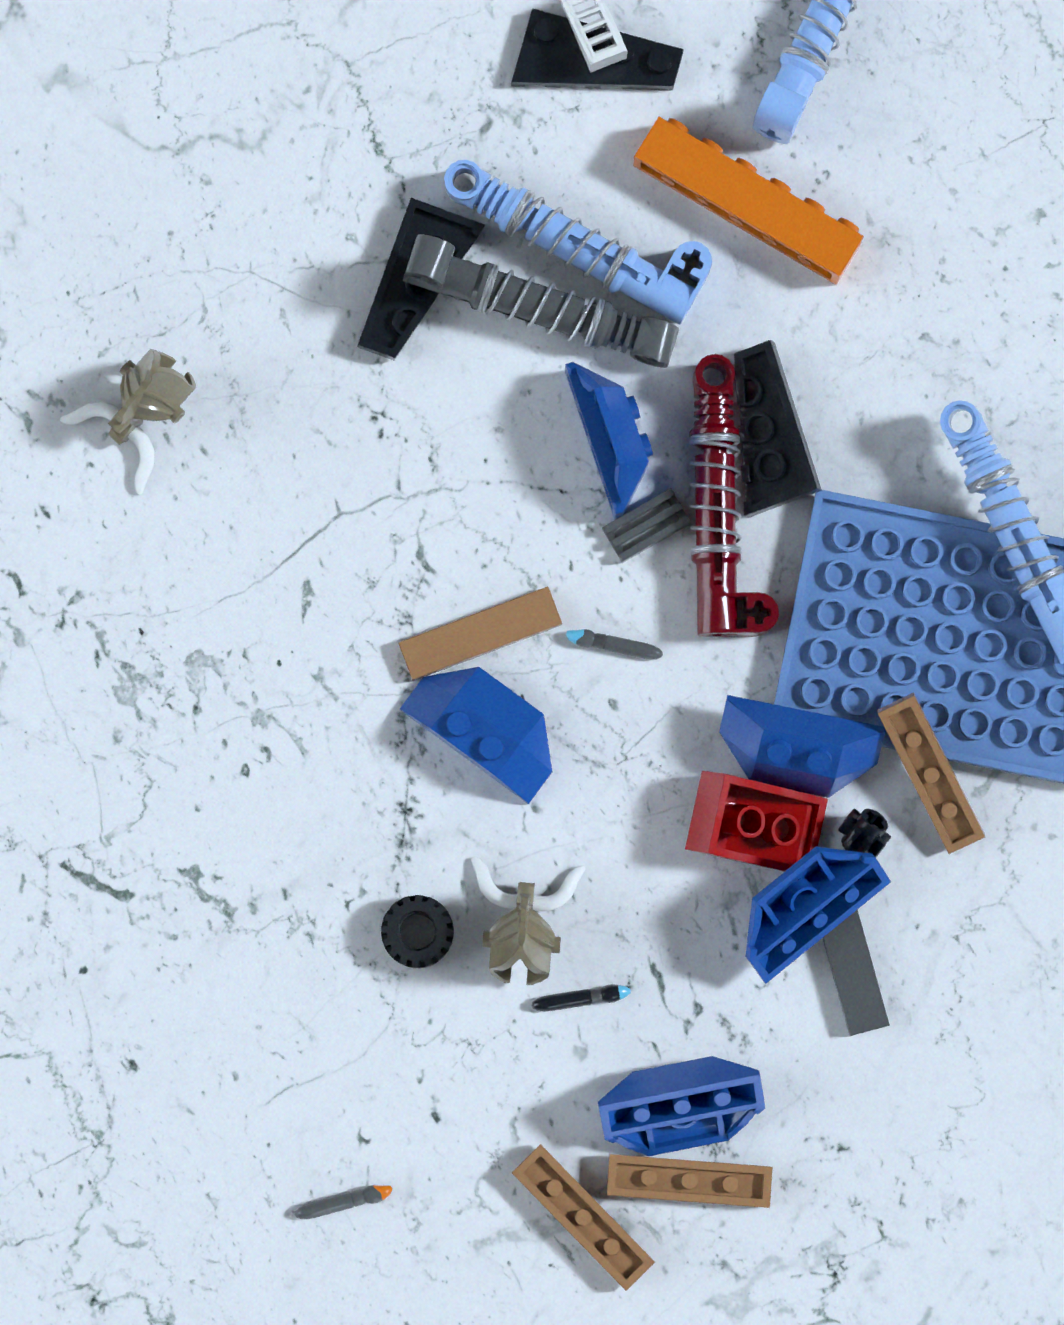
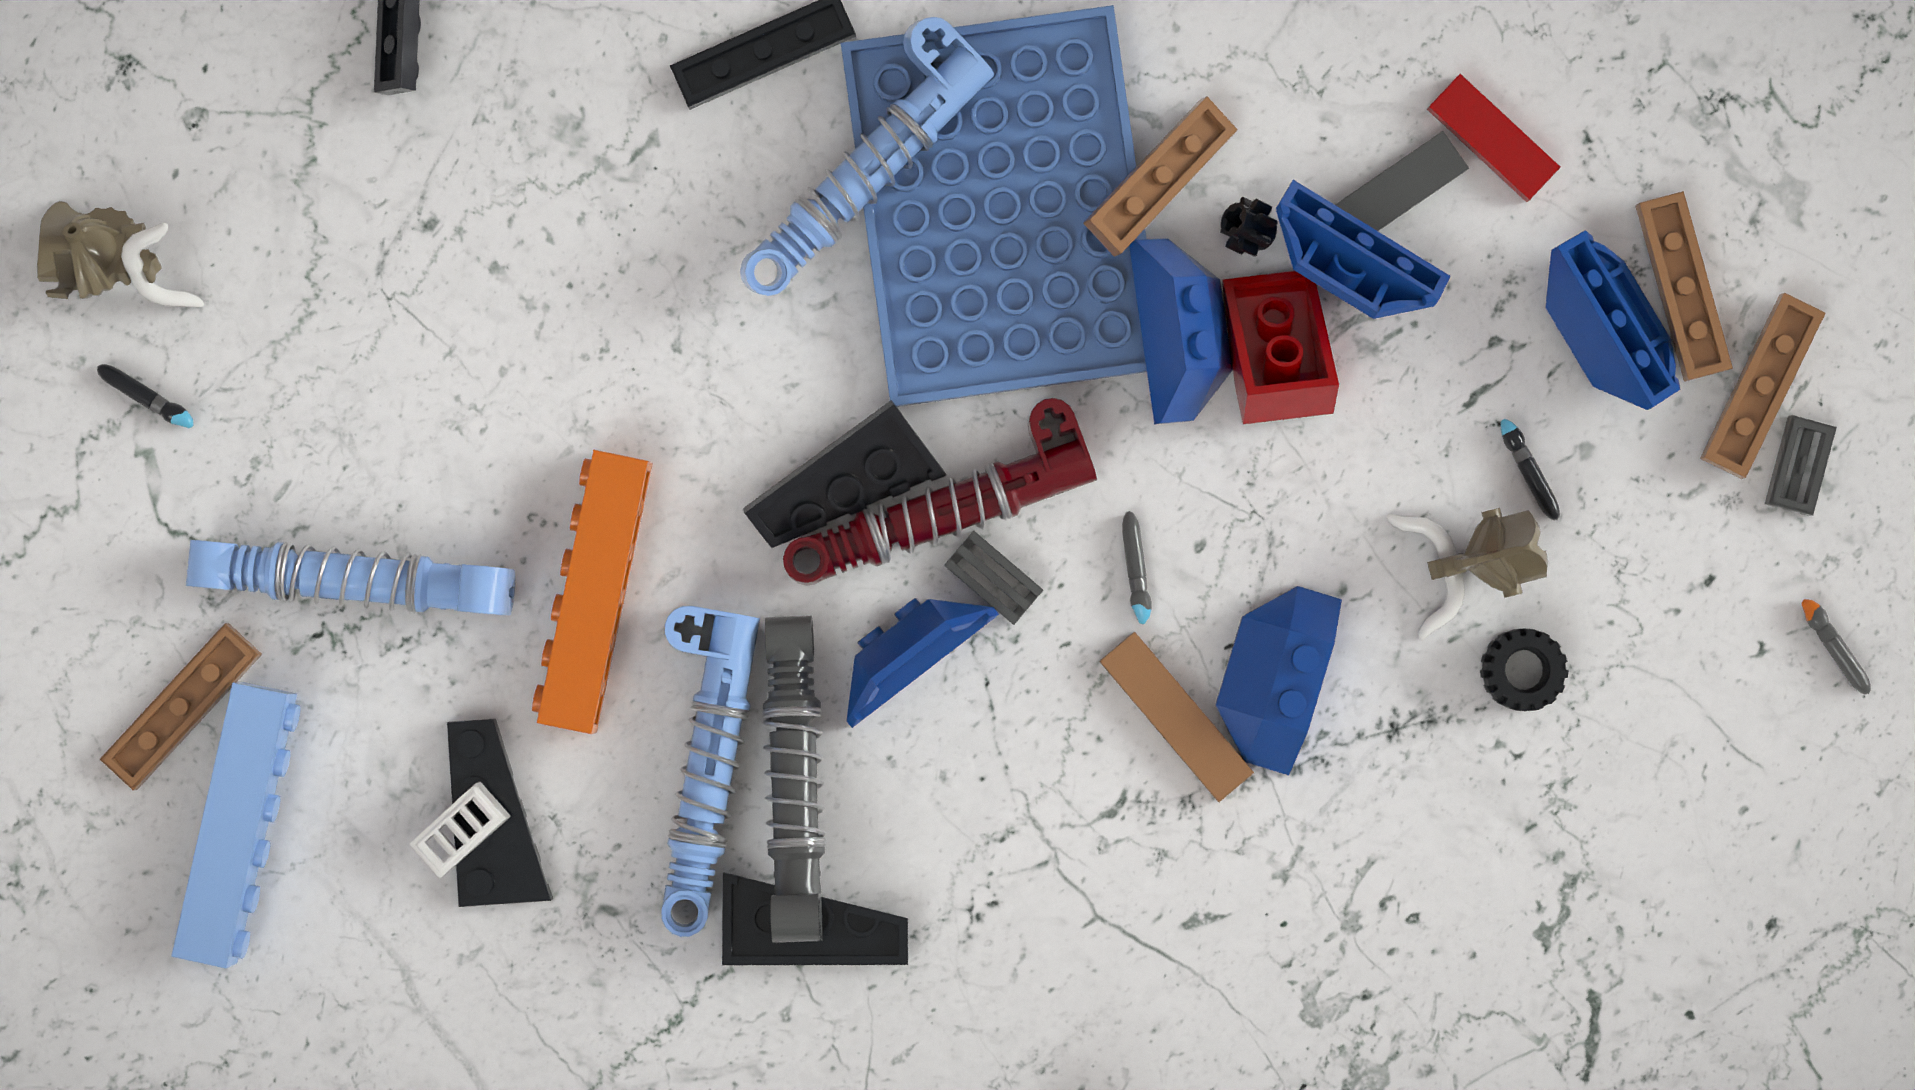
camera: 110 degrees left, 5 degrees up
(532, 1246) = (1783, 460): none -> dark grey tile
(869, 1067) = (1493, 138): none -> red tile

